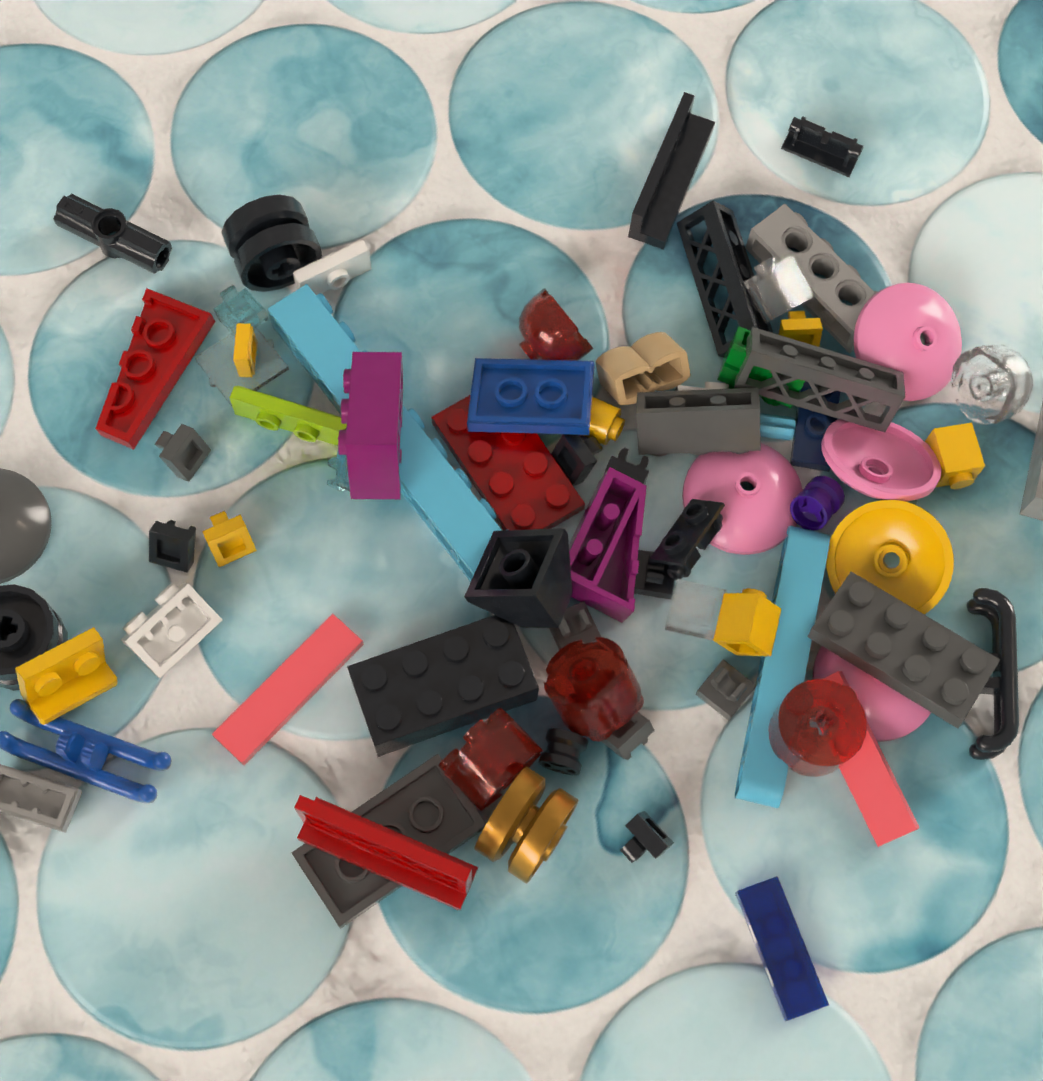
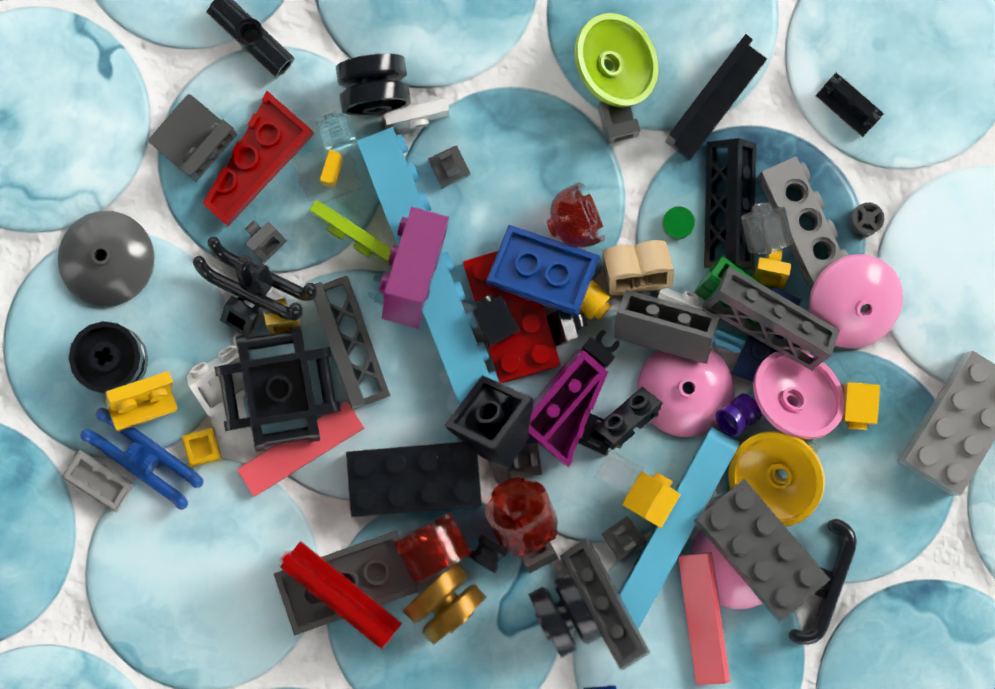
camera: 15 degrees right, 15 degrees up
(69, 360) = (192, 137): none -> dark grey bracket
(159, 721) = (201, 447): none -> yellow tile
(181, 496) = (254, 282): none -> black piece
(240, 614) = (277, 388): none -> black brick
(305, 550) = (338, 346): none -> dark grey fence
(386, 320) = (449, 166): none -> dark grey tile
(491, 464) = (495, 319): none -> black brick
(546, 155) = (625, 52): none -> lime dish
(568, 225) = (618, 123): none -> dark grey panel
(646, 837) = (529, 633): black tile -> none
(672, 314) = (678, 222): none -> green tile
(686, 796) = (561, 617): none -> black wheel
(733, 771) = (605, 604): none -> dark grey tile
(834, 710) = (685, 611): clear red brick -> none
(885, 247) = (871, 215): none -> dark grey wheel
(992, 383) = (911, 355): clear cylinder -> none

